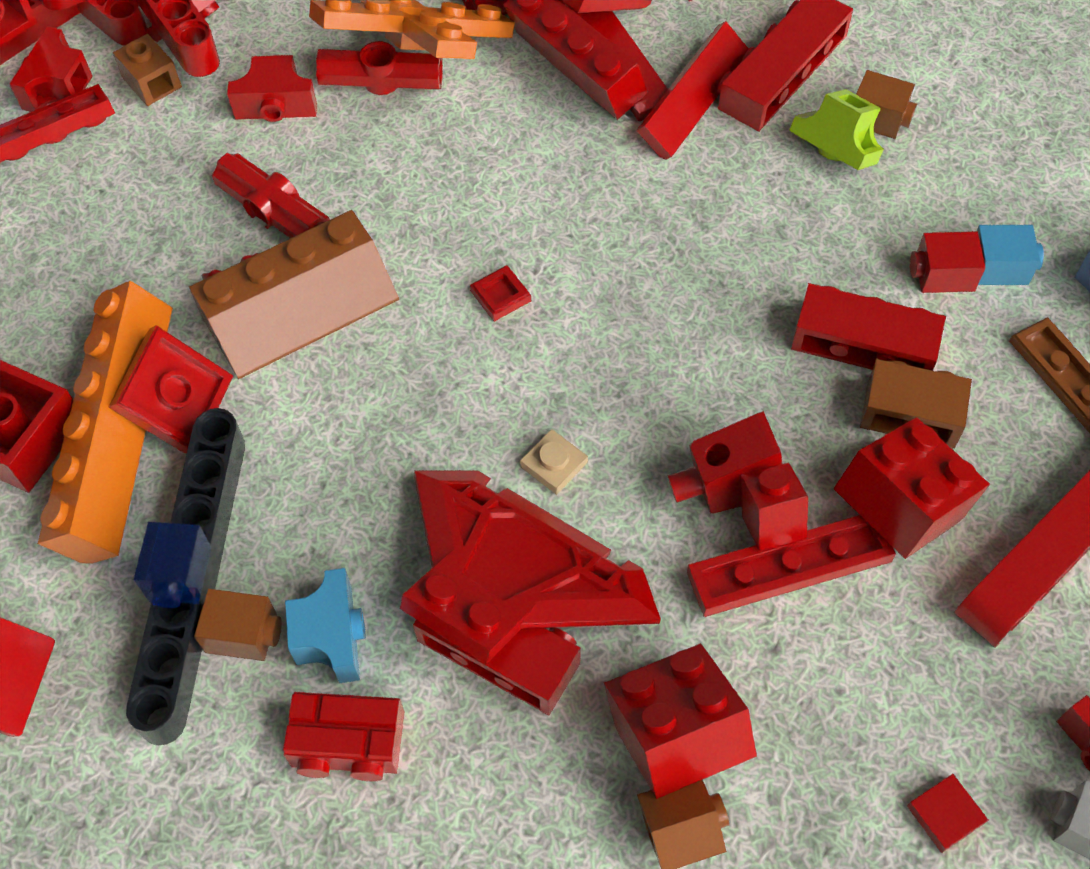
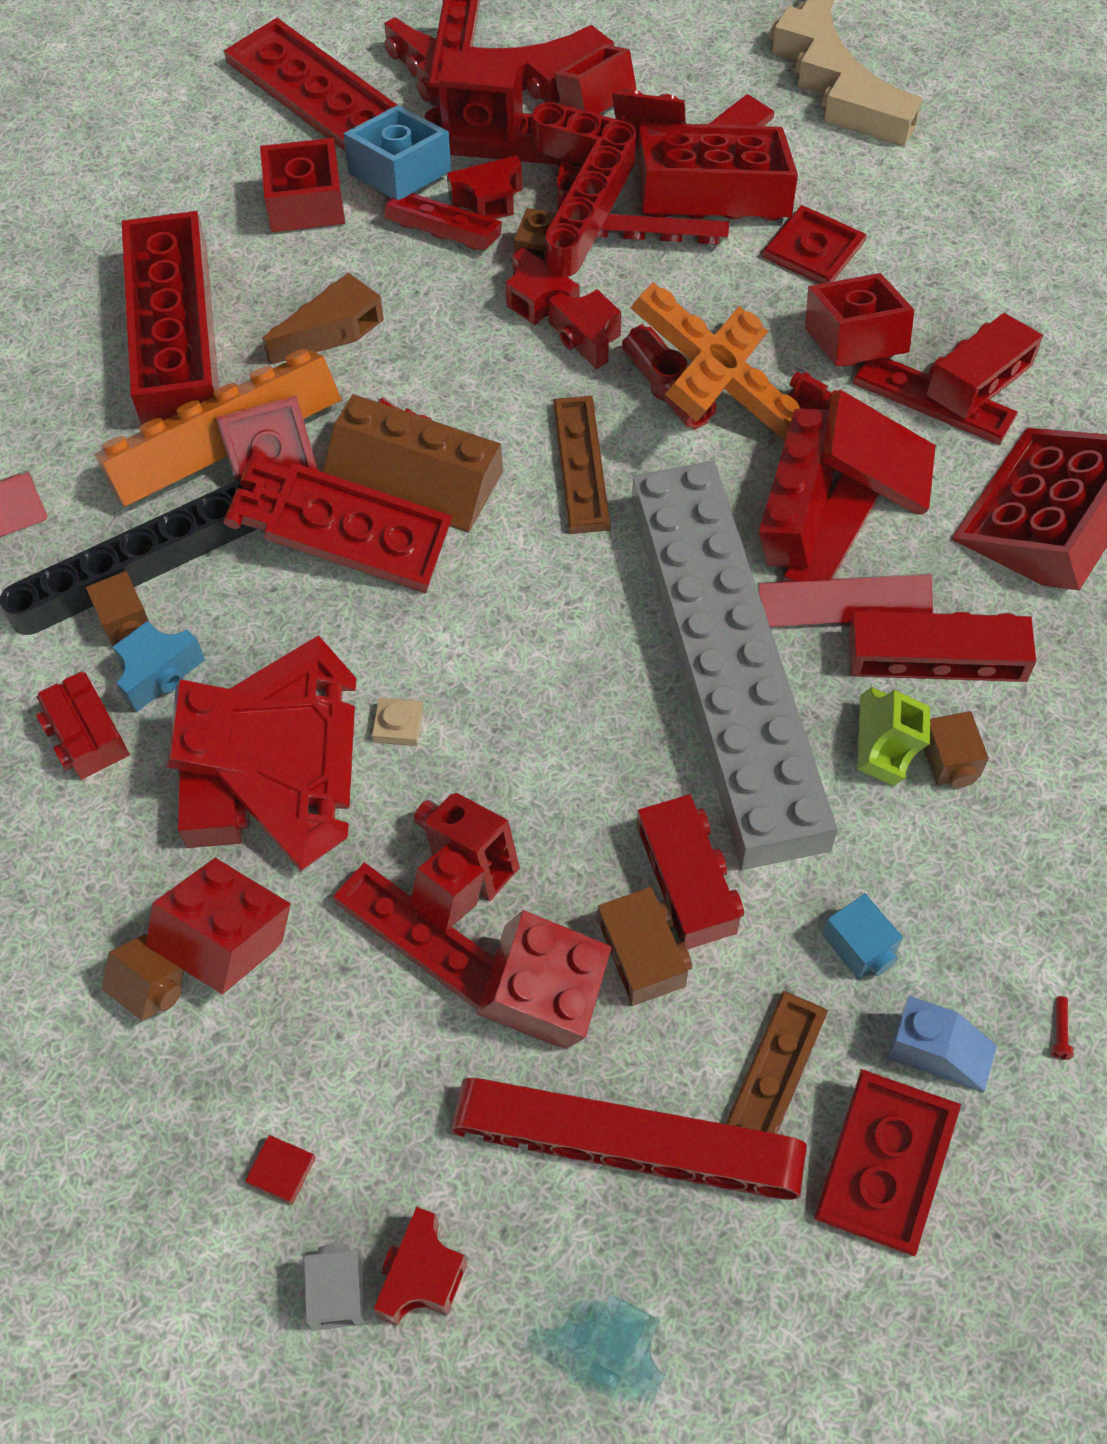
camera: 55 degrees right, 0 degrees up
(73, 264) = (329, 320): none -> dark orange slope
(172, 564) = (119, 535): clear blue brick -> none
(196, 101) = (533, 285): none -> red brick
(266, 196) = (486, 388): red piece -> none
(311, 380) = (340, 521): none -> red hinge
(405, 180) = (581, 465): none -> dark orange tile
(500, 293) = (525, 592): red tile -> none
(693, 189) = (732, 668): none -> light grey brick
(948, 262) = (814, 893): red brick -> none

